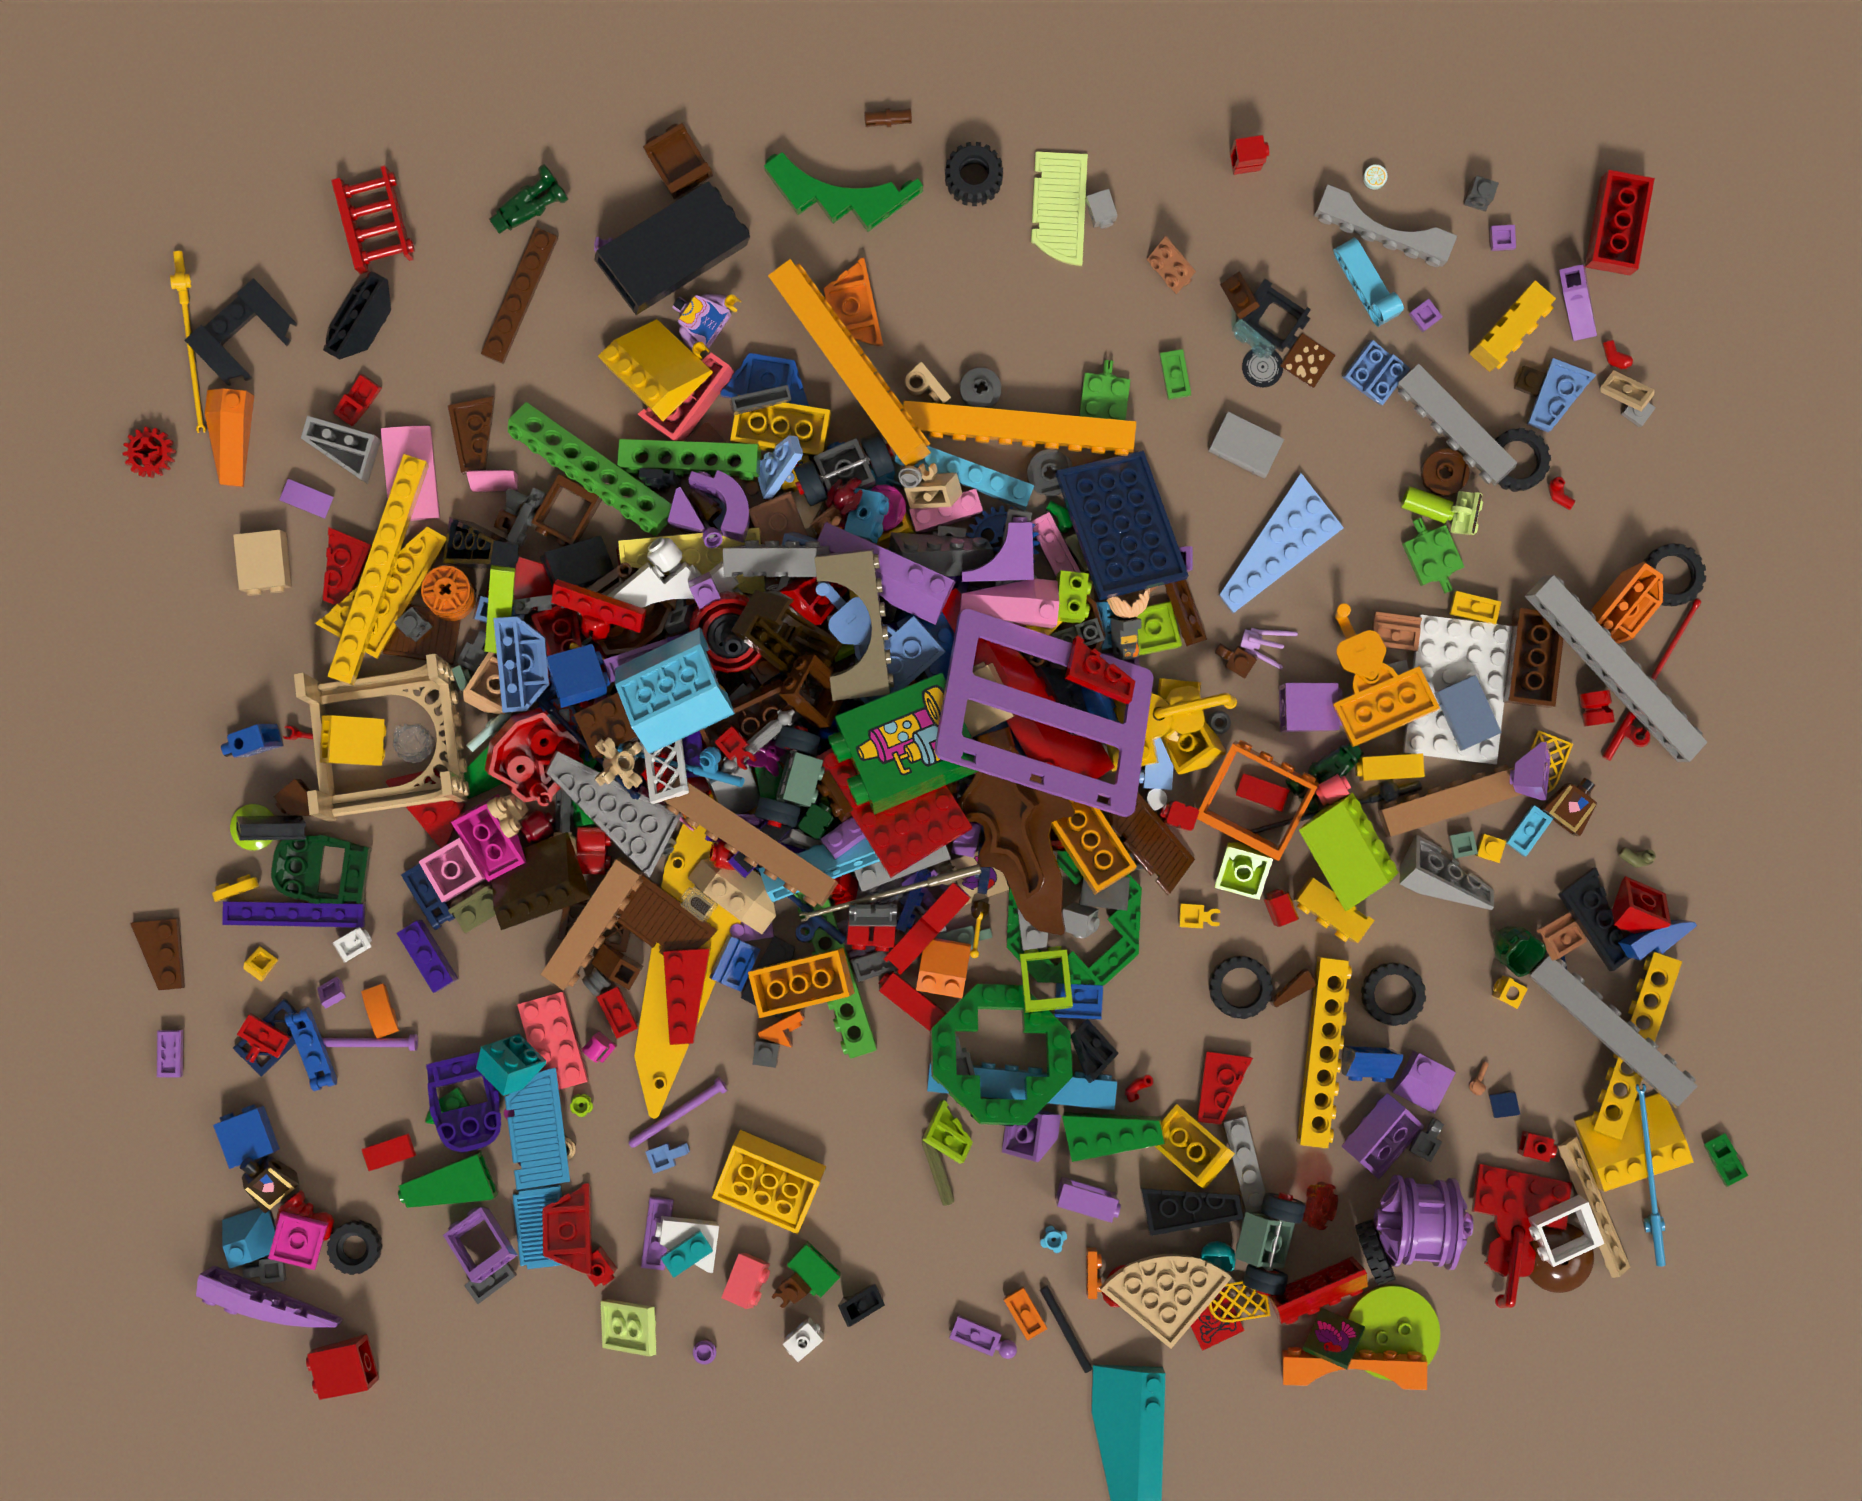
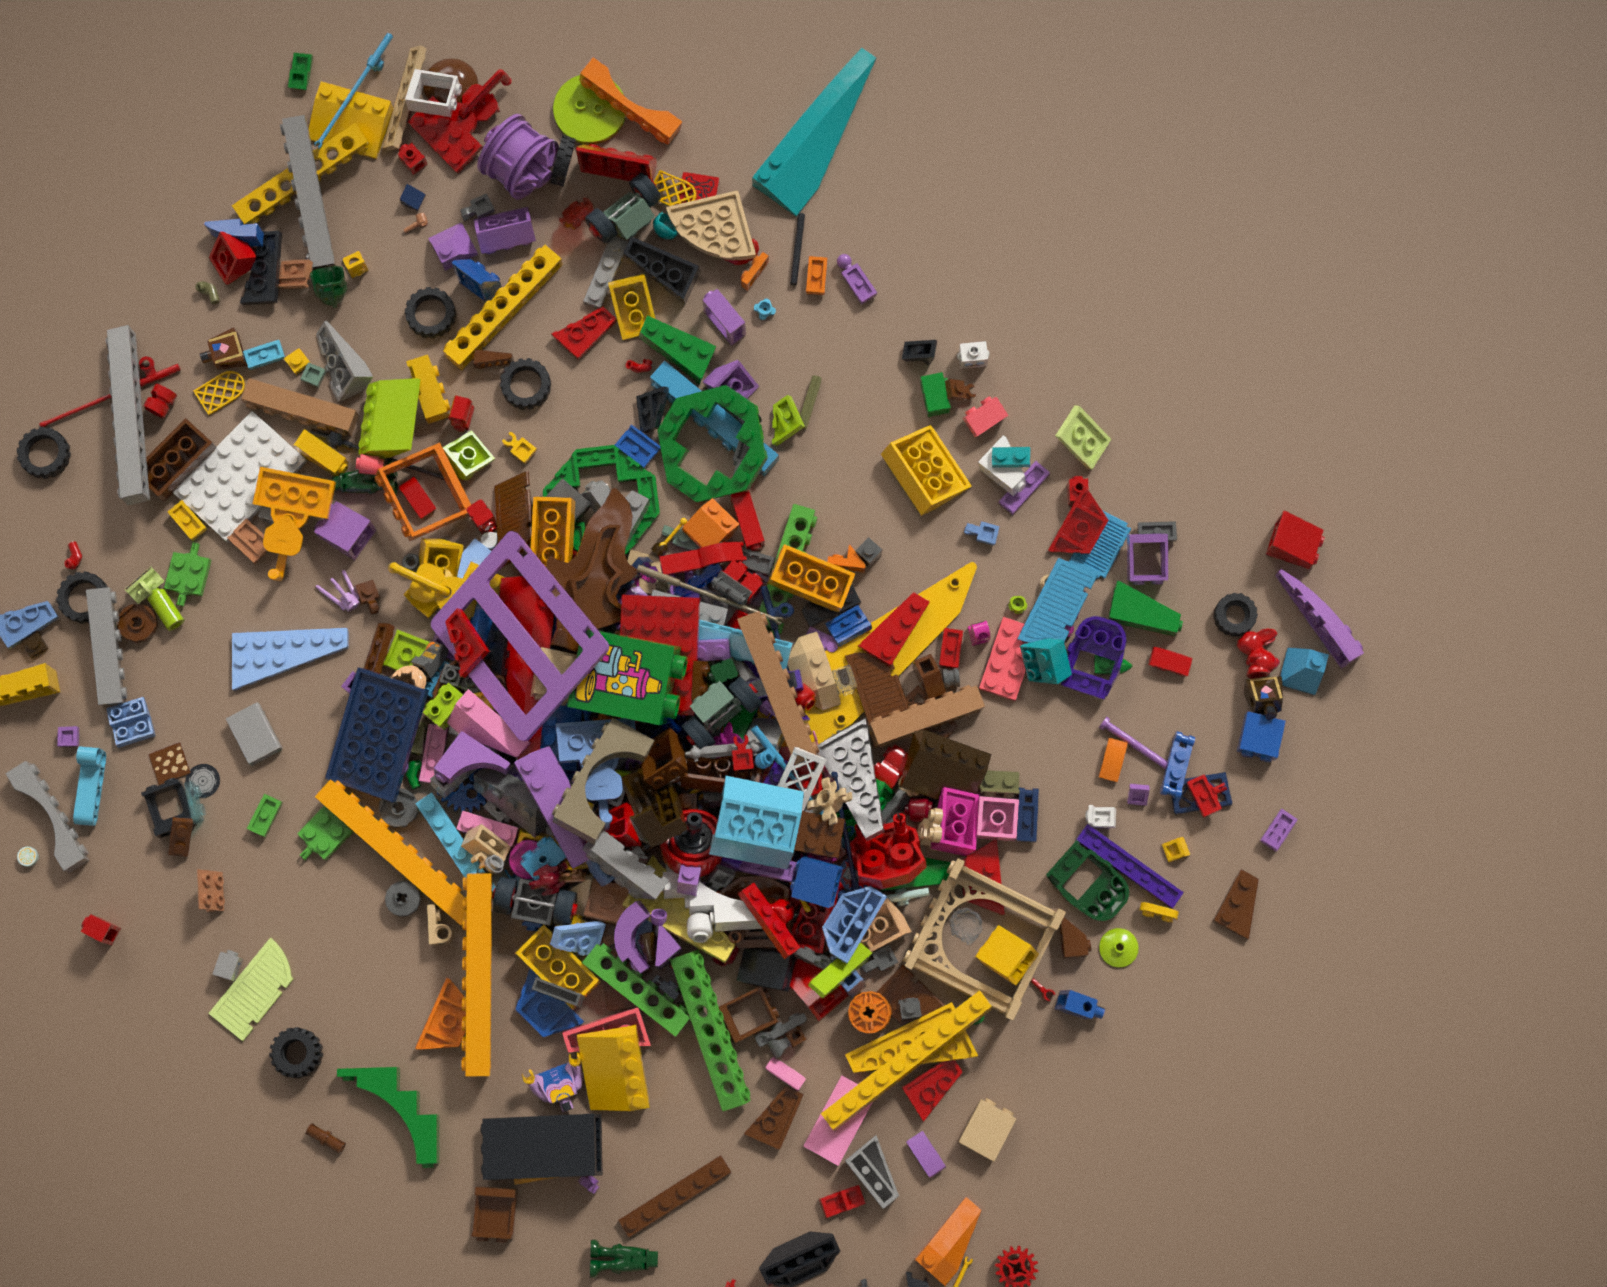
camera: 150 degrees left, 10 degrees down
(268, 1271) = (1304, 638): dark grey plate -> none
(270, 828) = (1104, 932): black piece -> none
(298, 1240) = (1268, 640): dark pink plate -> none
(427, 956) = (1054, 773): dark purple brick -> none
(462, 676) = (900, 947): sand green plate -> none
(477, 547) = (826, 1027): black wedge -> none
(704, 1352) = (1045, 391): medium lavender plate -> none
(719, 1086) = (955, 555): medium lavender bar -> none
(1046, 1004) = (670, 461): lime window -> none
(1334, 1338) = (628, 127): dark green tile -> none
(1467, 712) = (244, 454): sand blue piece -> none
(1532, 773) = (234, 385): medium lavender slope -> none
(1630, 601) = (85, 452): orange wedge -> none

